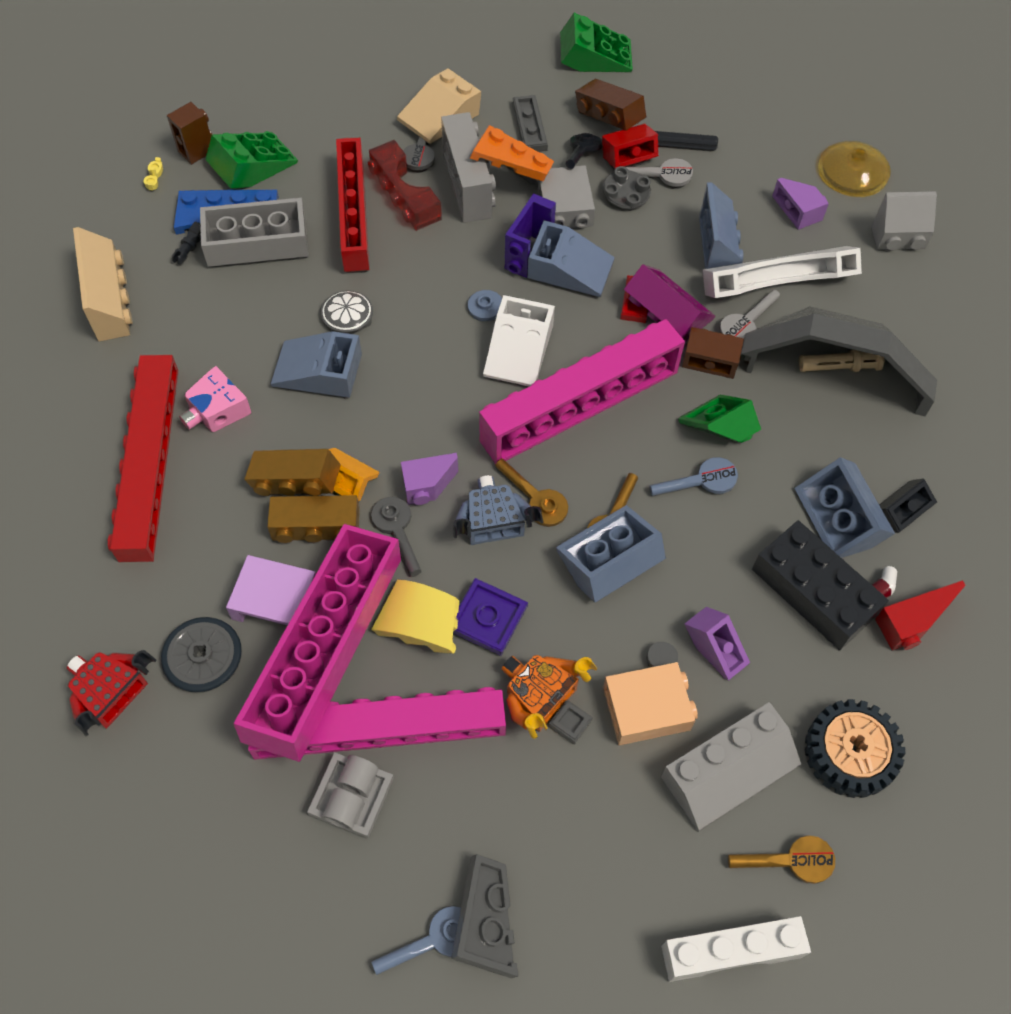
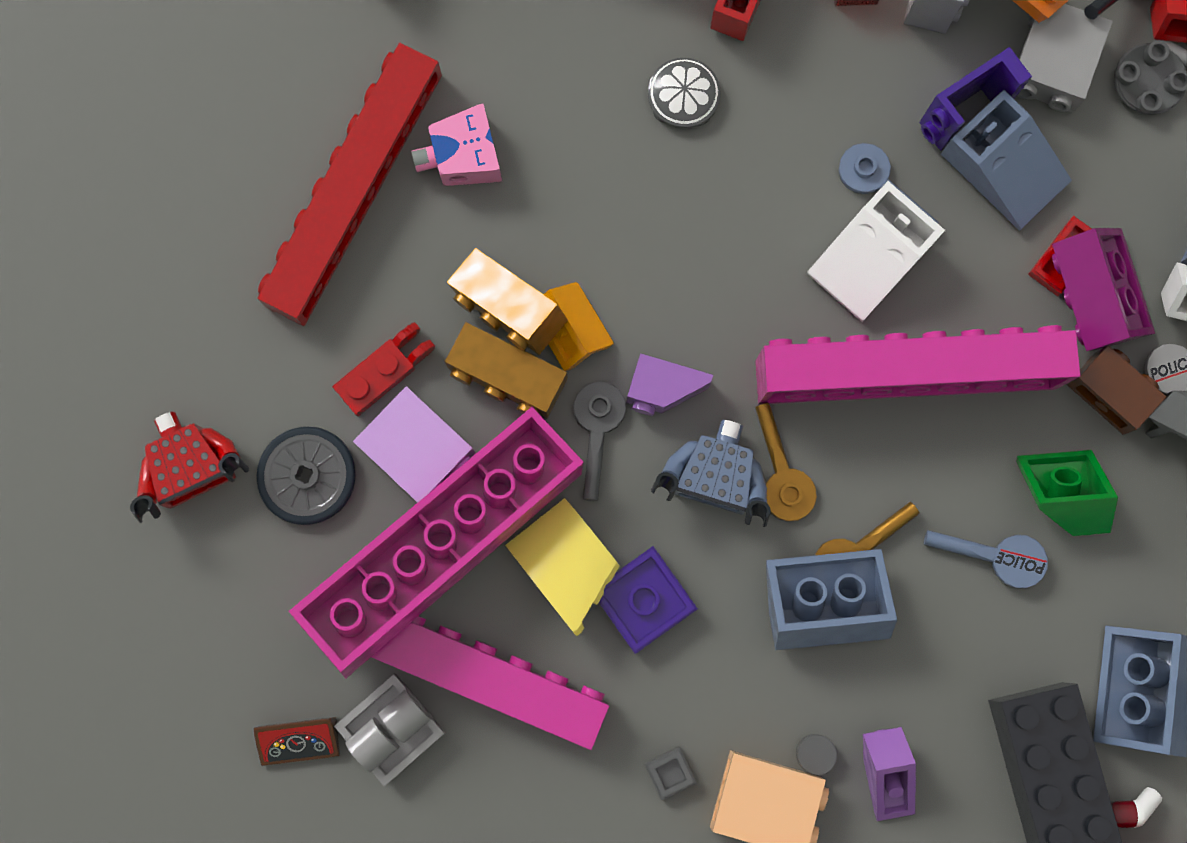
camera: 30 degrees right, 20 degrees up
(224, 561) = (381, 371): none -> red hinge
(283, 841) = (297, 741): none -> slope
(319, 364) = (610, 157): sand blue slope -> none
(542, 688) = (655, 723): torso -> none

